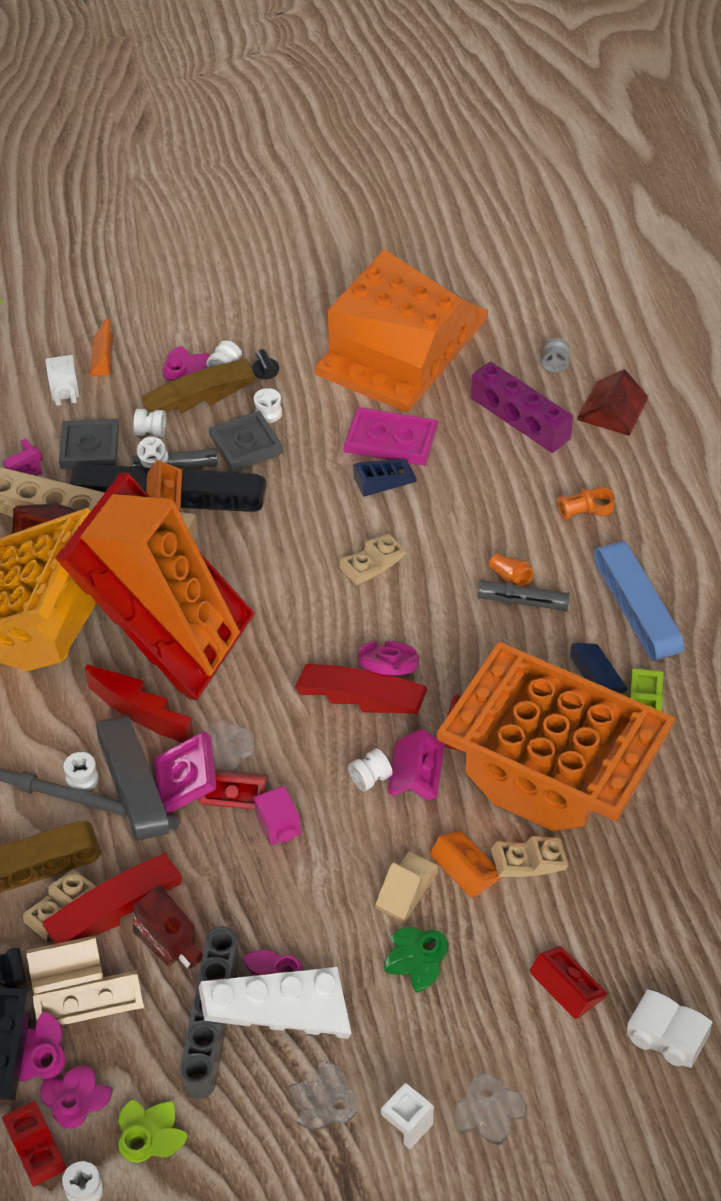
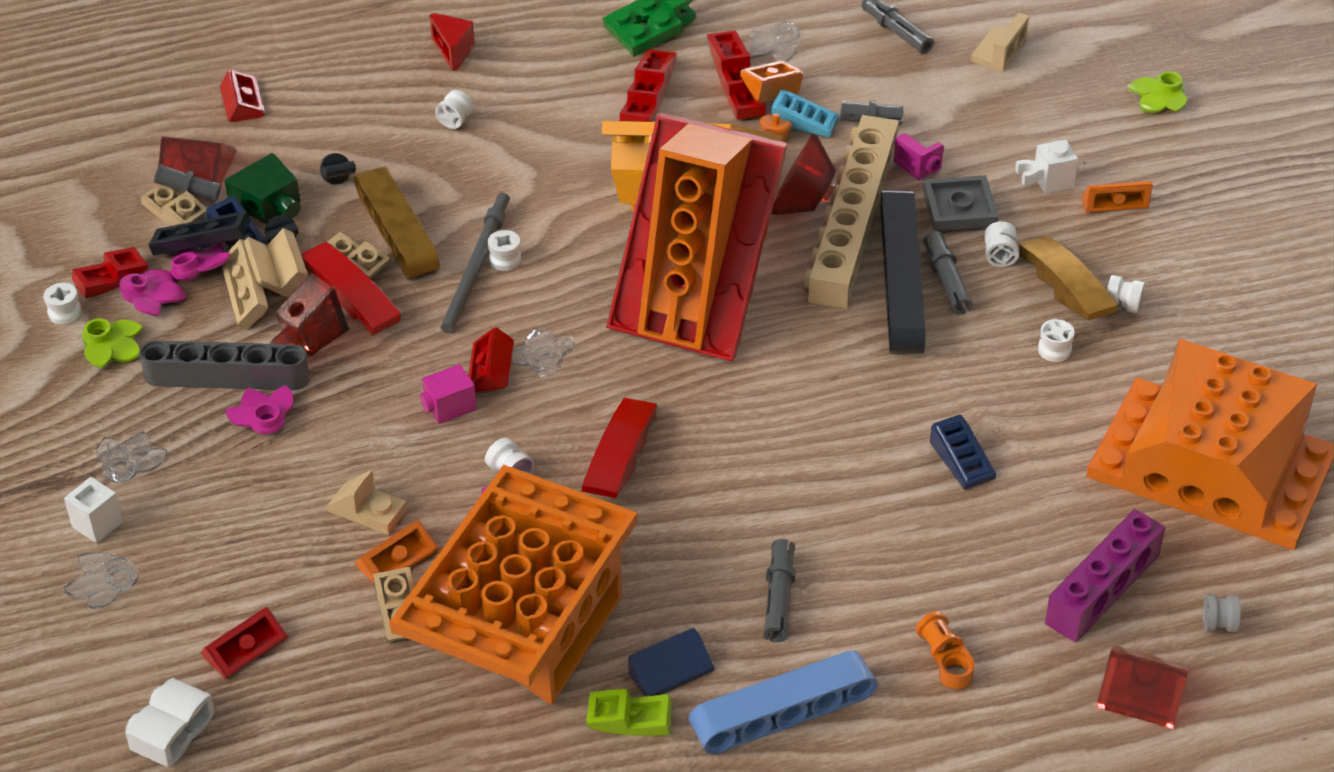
camera: 85 degrees right, 5 degrees down
(130, 698) = (591, 275): red slope -> none
(132, 778) = (491, 279): dark grey beam -> none
(151, 447) = (933, 239): white wheel -> none
(164, 482) = (880, 252): orange slope -> none
(182, 364) = (1104, 262): dark pink plate -> none
(185, 772) = (497, 316): dark pink tile -> none
(246, 441) = (992, 327): dark grey plate -> none
(265, 367) = (1126, 334): black plate -> none
(287, 1000) = (223, 411): white wing -> none
(376, 558) = (820, 452): tan slope -> none
(388, 659) = (662, 465): dark pink tile -> none
(391, 436) = (1035, 460): dark pink tile -> none
(413, 958) = (280, 517): green plate -> none
(512, 569) = (816, 577): orange cone -> none

